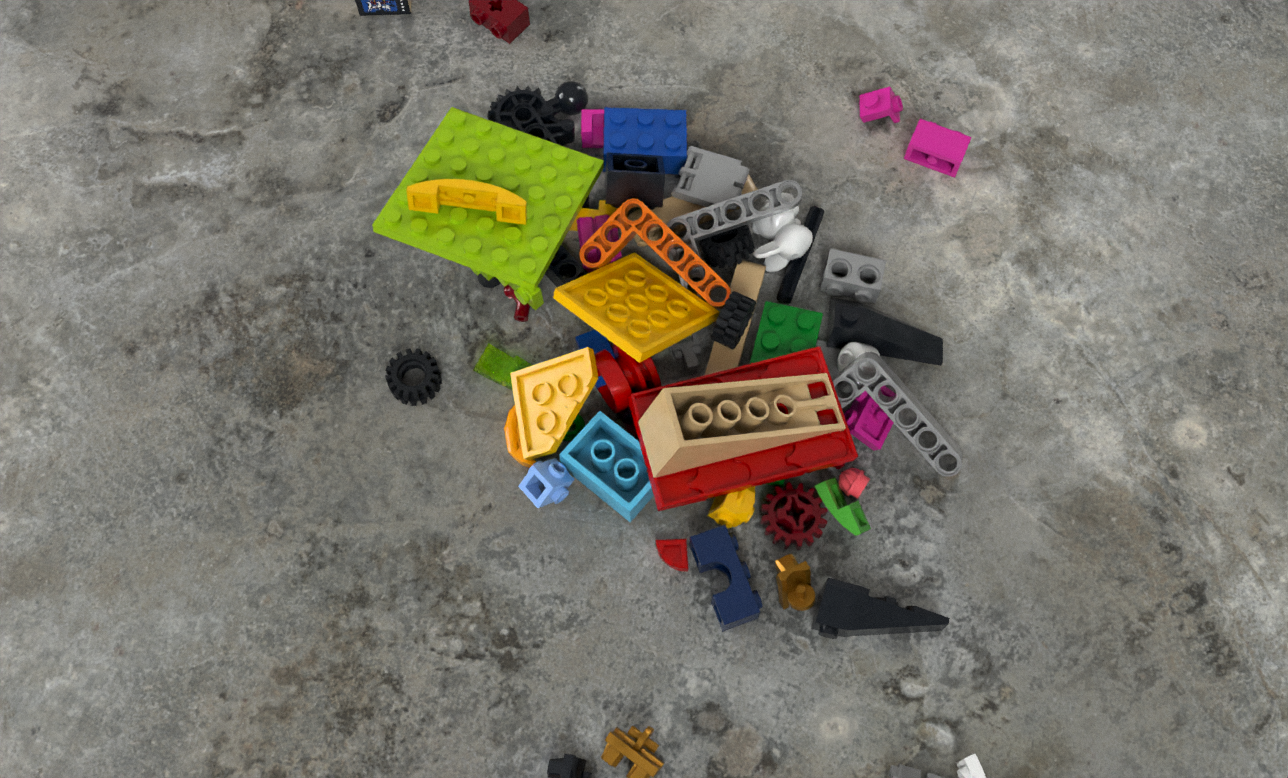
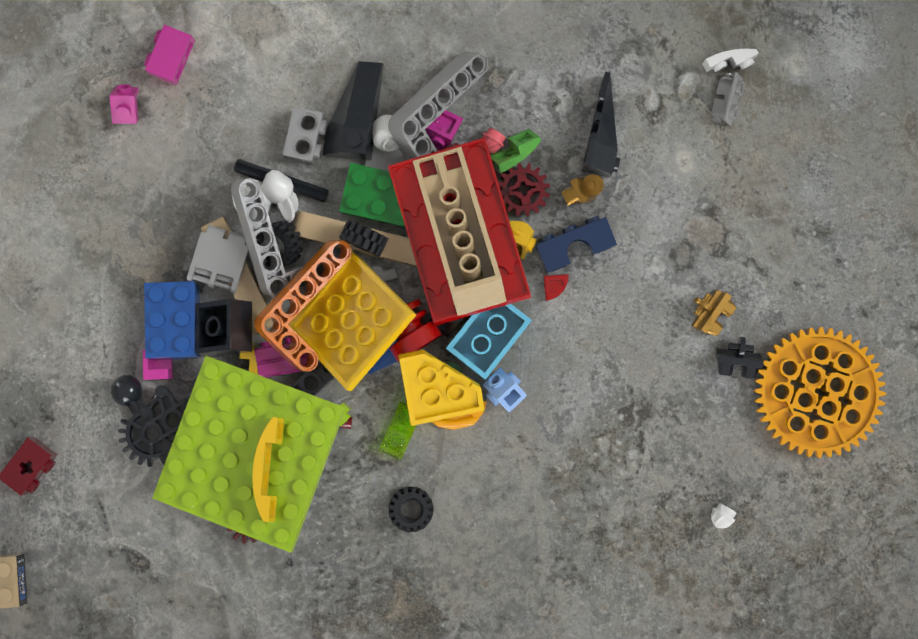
camera: 90 degrees left, 20 degrees up
(362, 757) = (722, 516): none -> white plate

